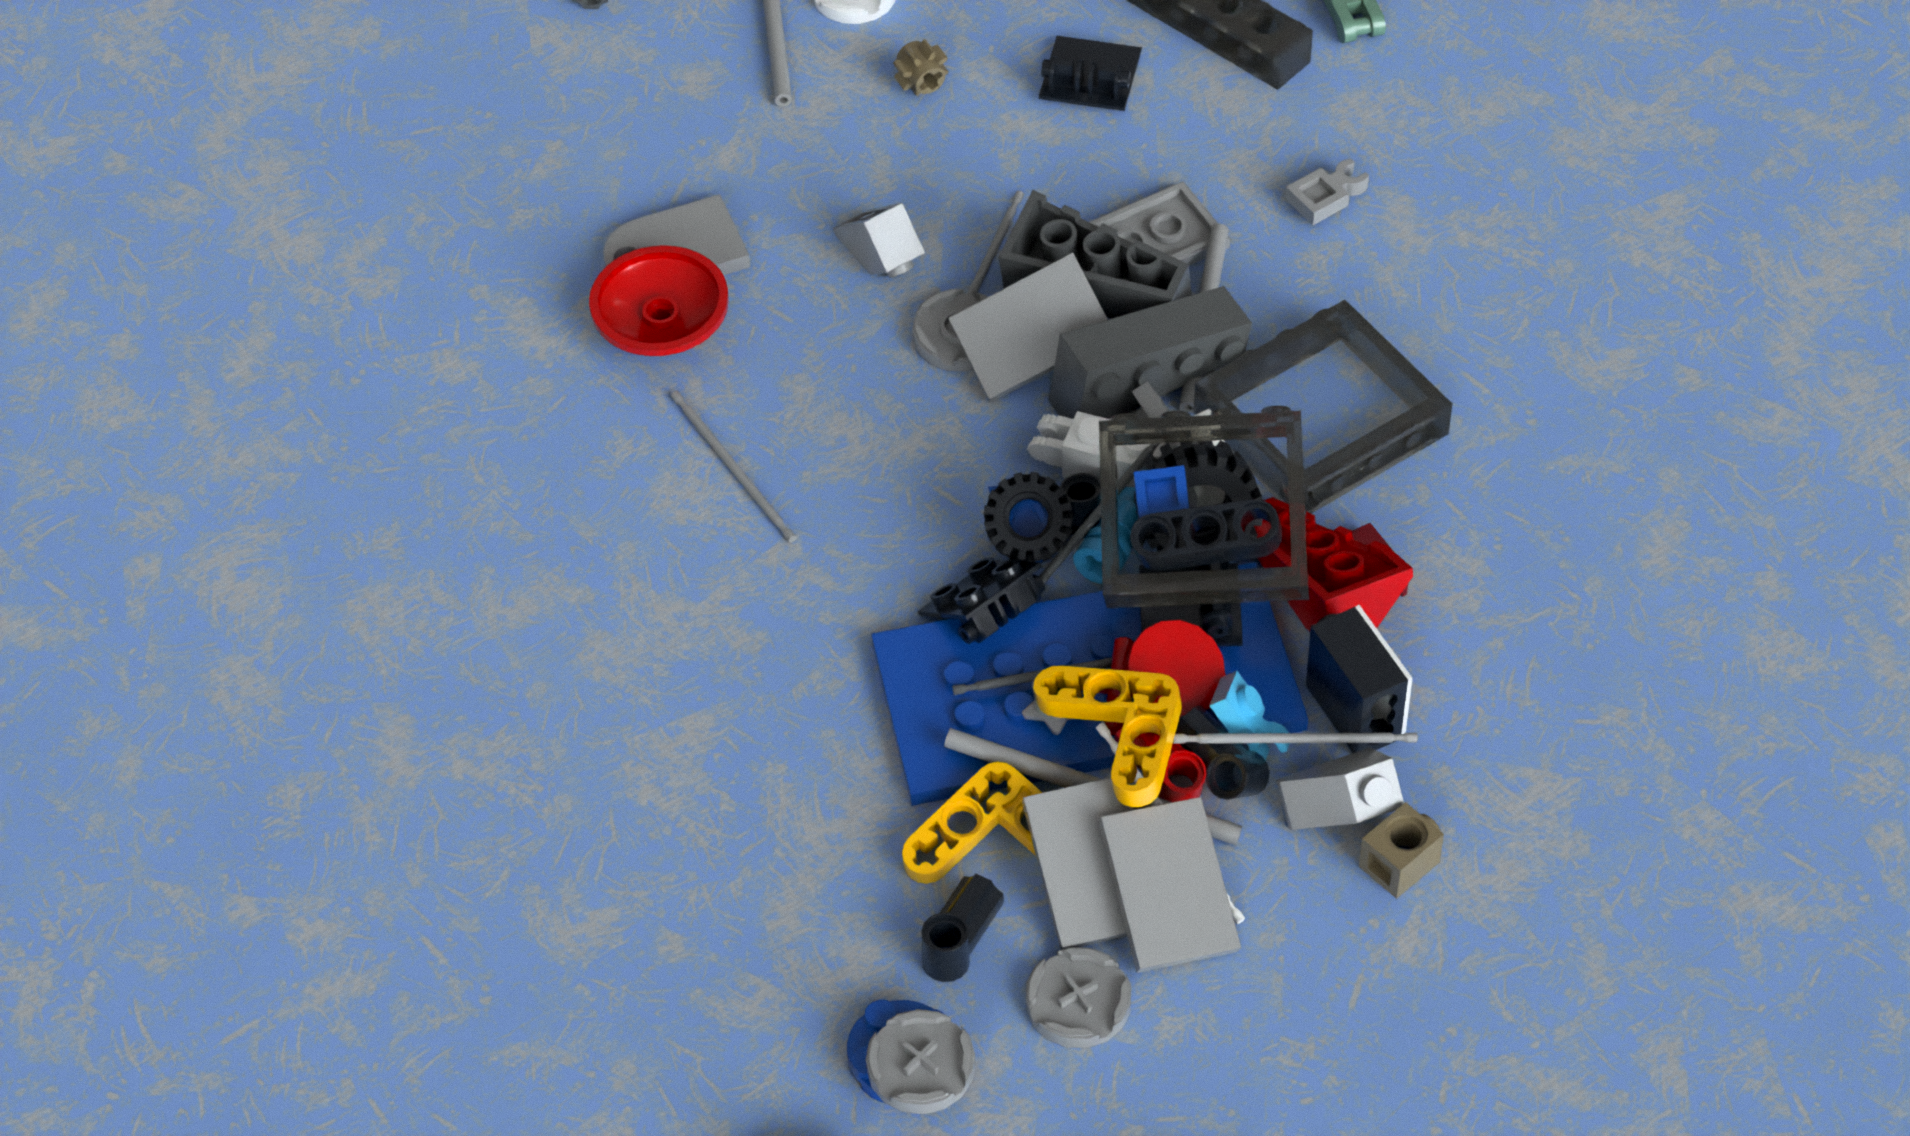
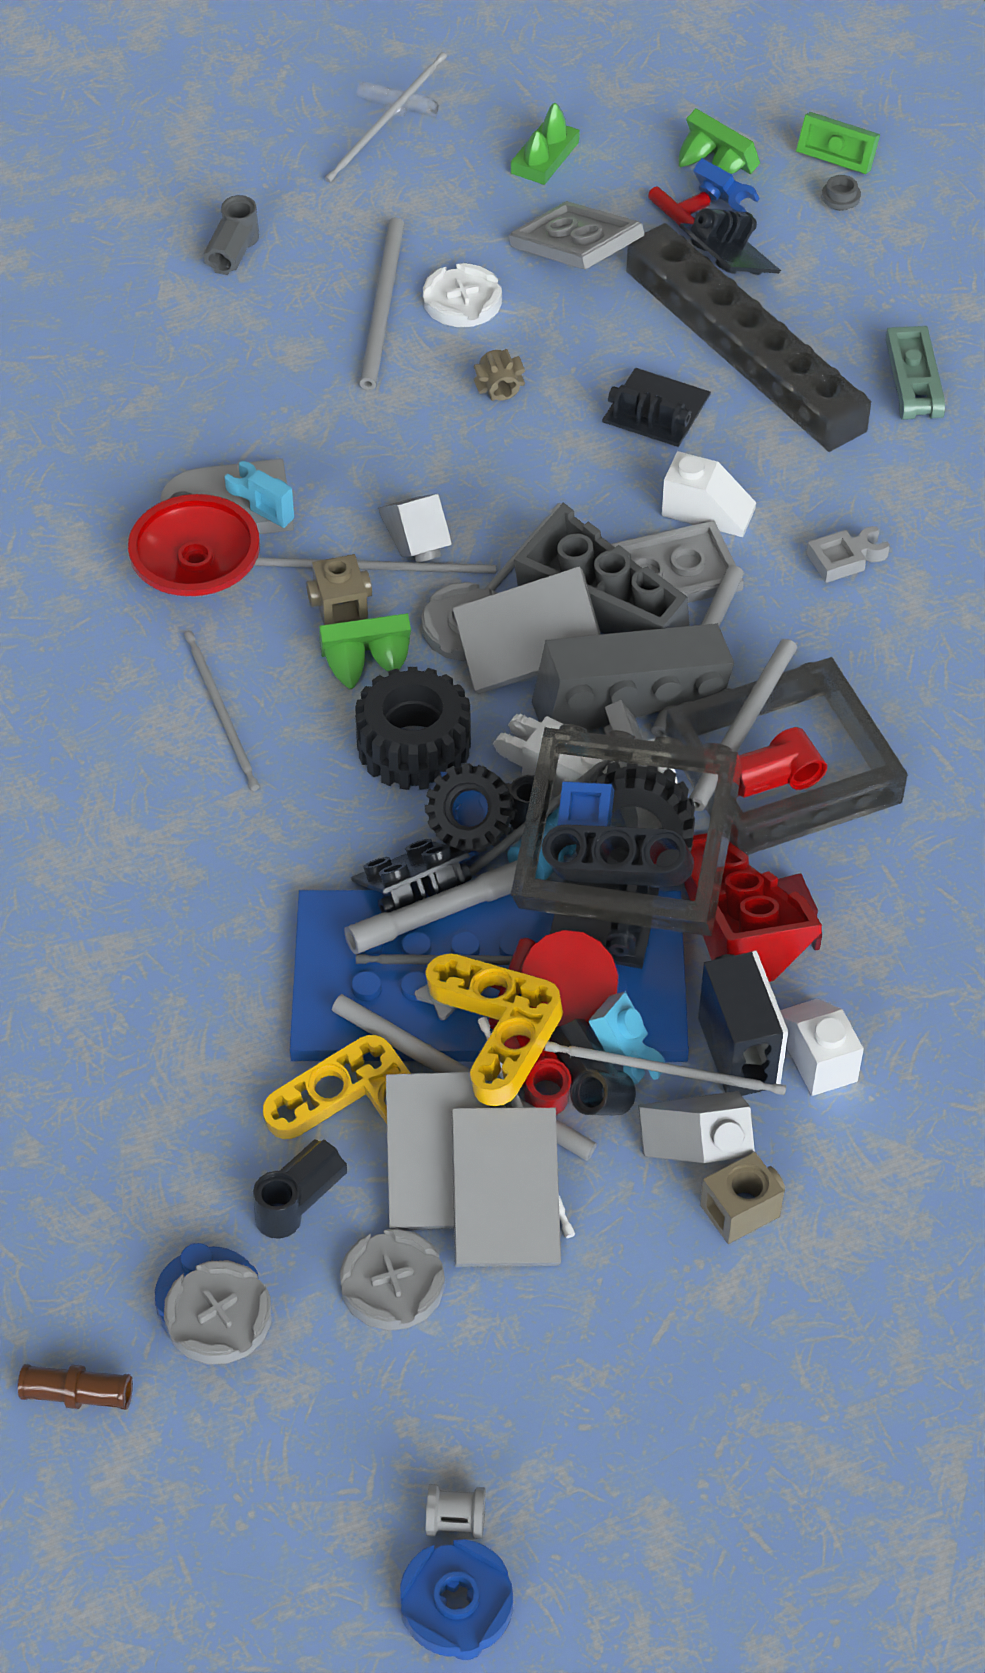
camera: 10 degrees right, 0 degrees up
(718, 234) = (266, 494): none -> medium azure plate
(823, 322) = (339, 582): none -> dark tan brick
(845, 373) = (346, 645): none -> bright green tile
(849, 288) = (384, 565): none -> light grey axle
(941, 419) = (412, 700): none -> black tyre
(977, 651) = (389, 925): none -> light grey piece
(1167, 153) = (702, 492): none -> white slope
(1278, 373) = (747, 716): none -> light grey piece
(1331, 412) = (787, 760): none -> red piece
(1443, 689) = (822, 1045): none -> white slope

